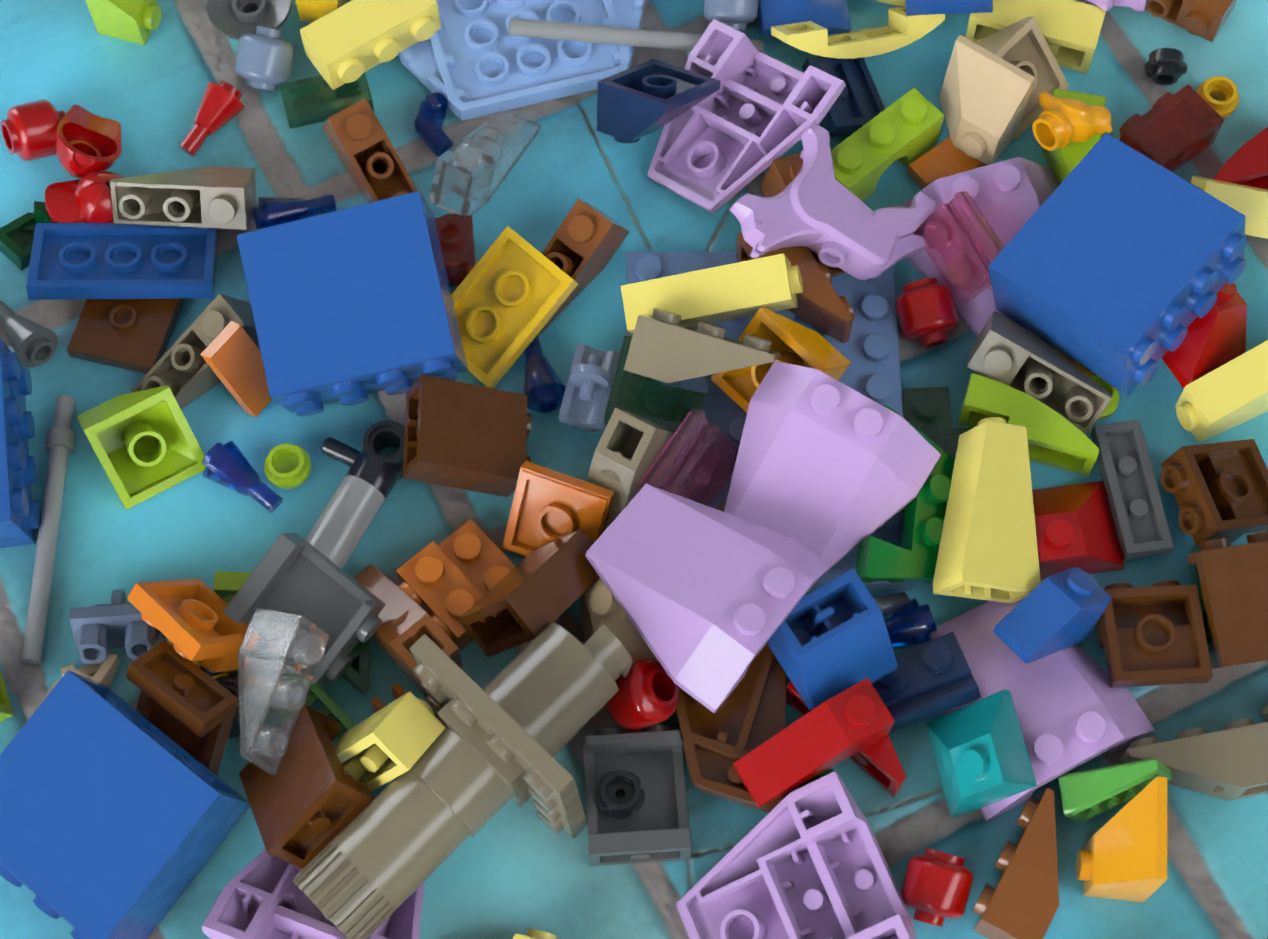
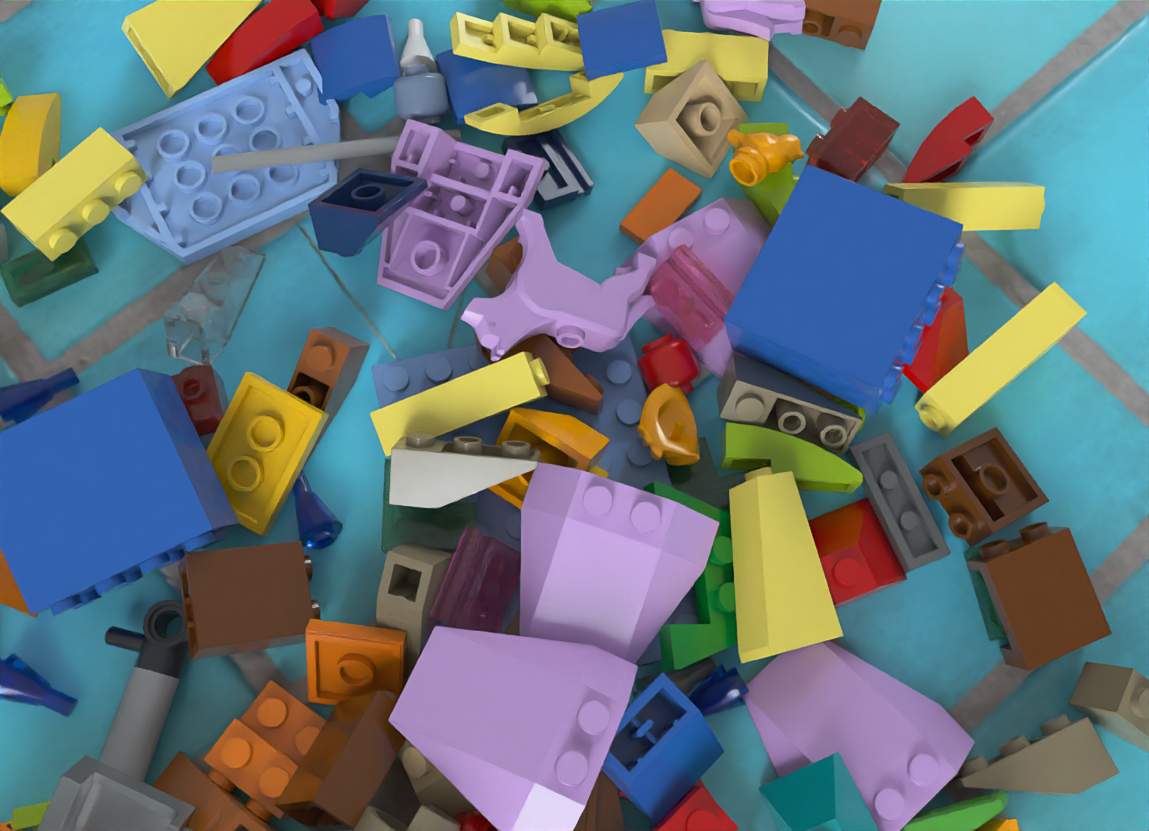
camera: 15 degrees left, 5 degrees up
(287, 466) = (75, 664): lime plate -> none
(367, 153) = (106, 326): dark orange slope -> none
(430, 123) = (156, 273): clear blue arm -> none
(588, 388) = (360, 516): sand blue hips -> none
(897, 133) = (601, 198): lime arch -> none
(913, 365) = (669, 427): none -> light orange hat
(927, 682) = (756, 752): dark blue plate -> none
(983, 100) = (676, 148): tan slope -> none
(1054, 615) = (859, 658): blue slope -> none
(1154, 635) = (953, 649): reddish brown plate -> none
(1165, 66) = (830, 81): black plate -> none
(1222, 89) = (889, 95): yellow plate -> none

